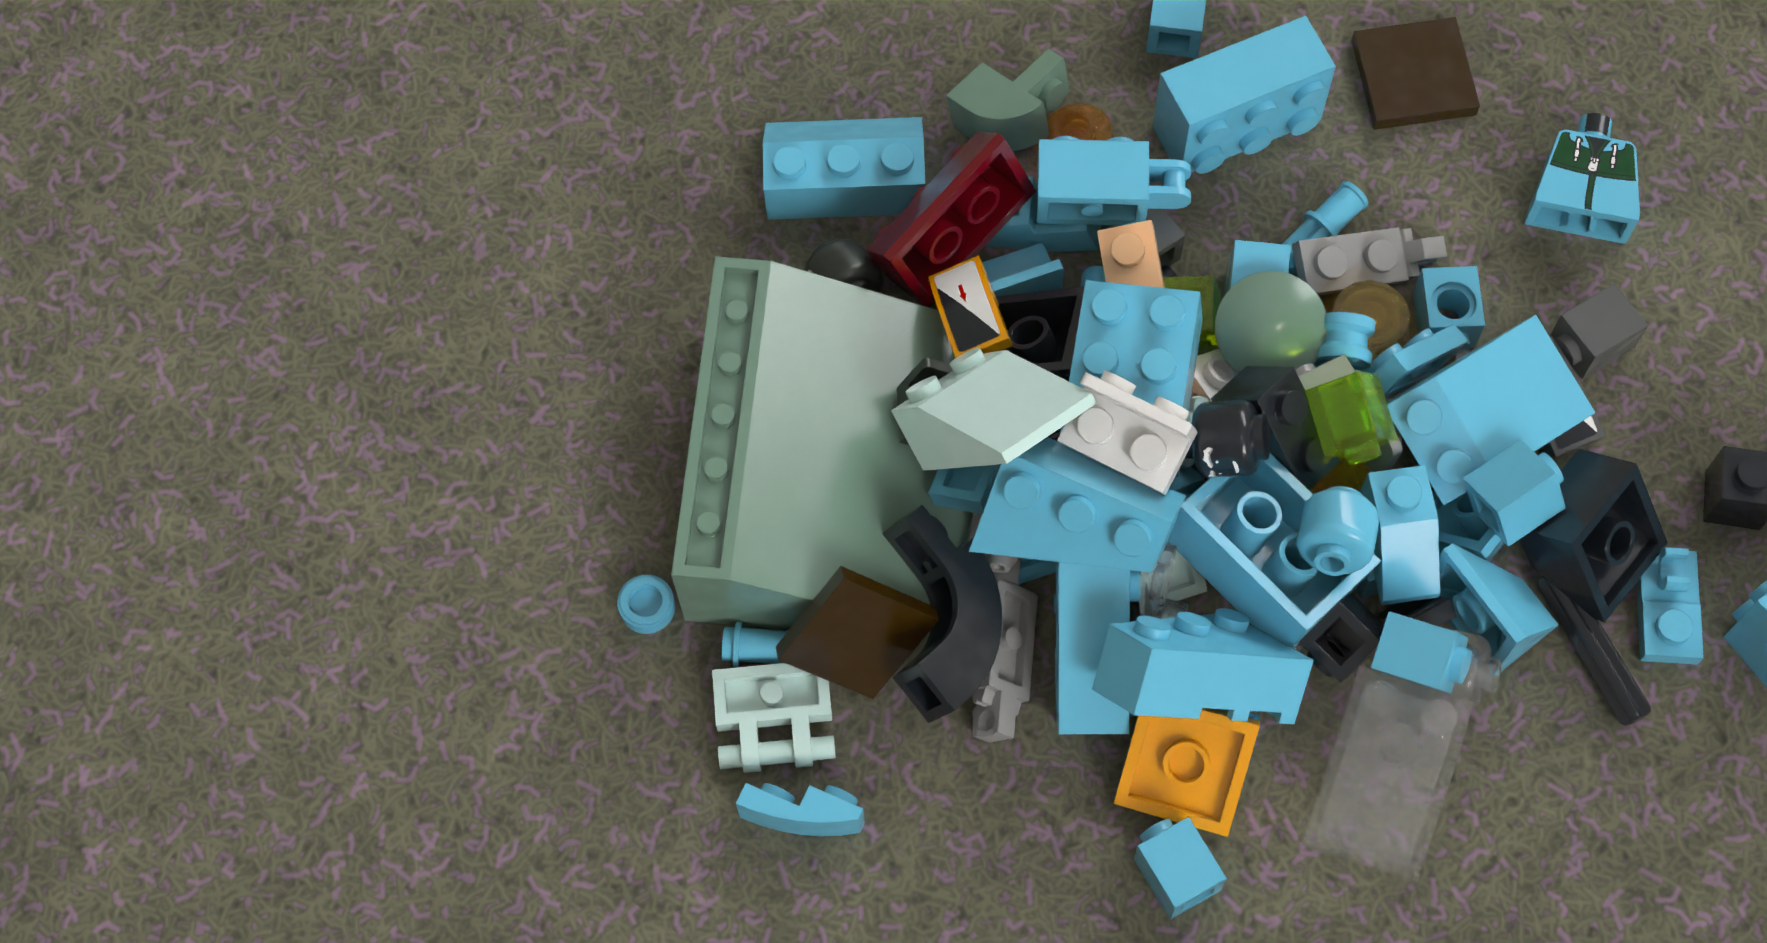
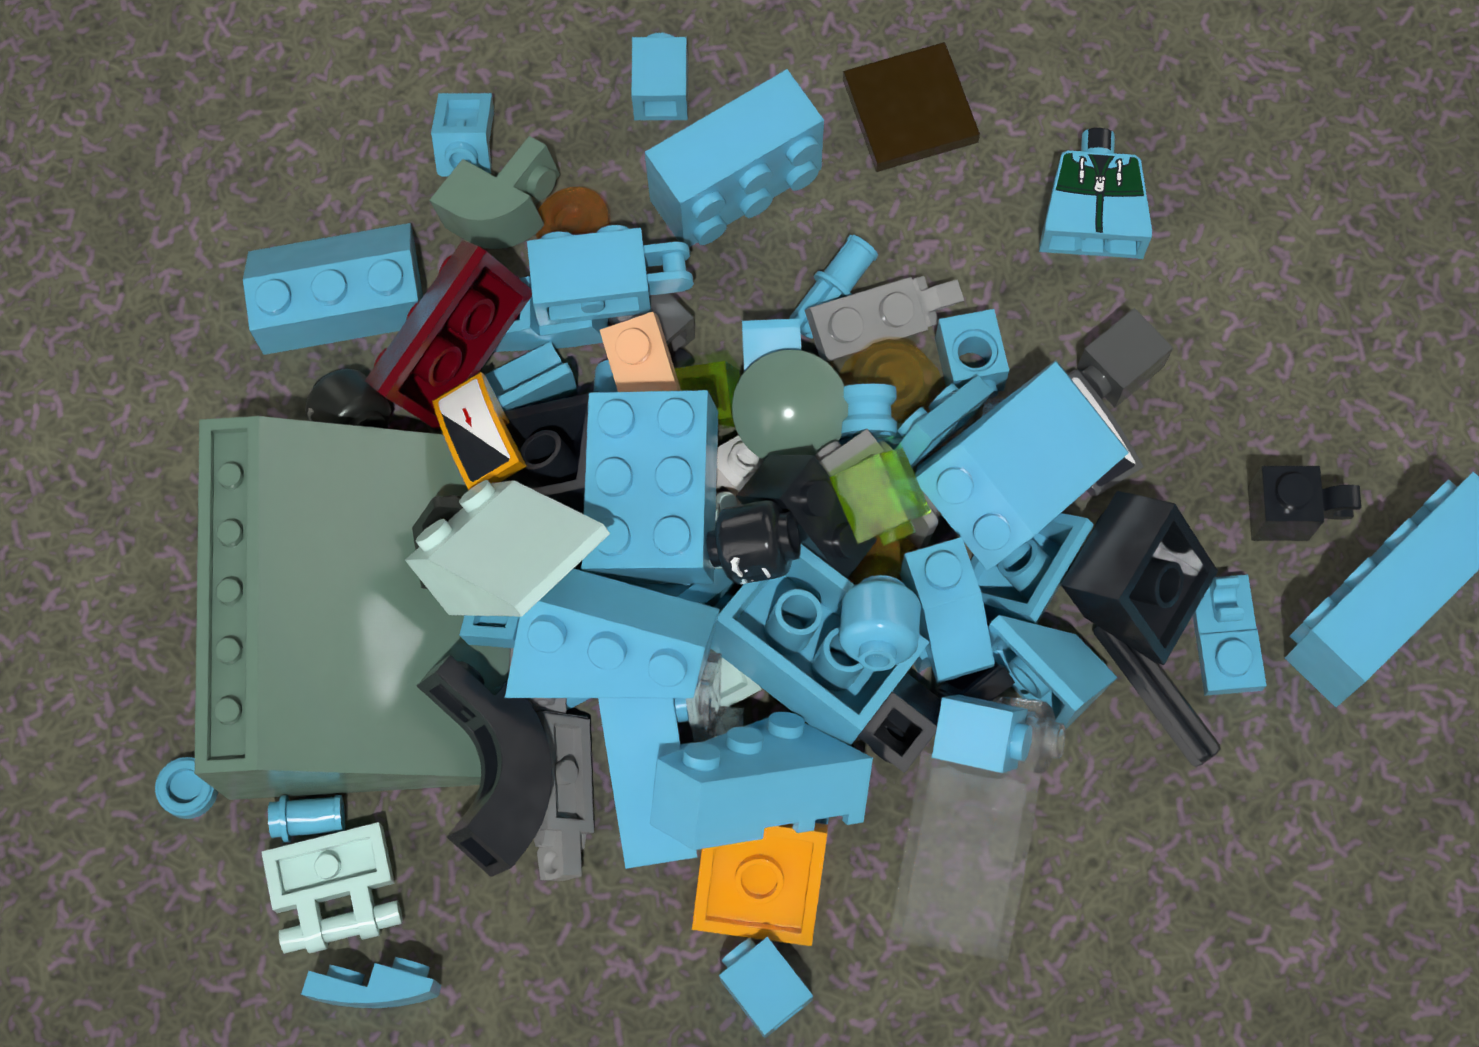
camera: 10 degrees left, 5 degrees up
(856, 632) = (402, 796): dark brown tile -> none
(982, 37) = (462, 131): none -> medium azure bracket
(1130, 433) = (650, 557): white bracket -> none
(1516, 491) = (1057, 550): medium azure brick -> none

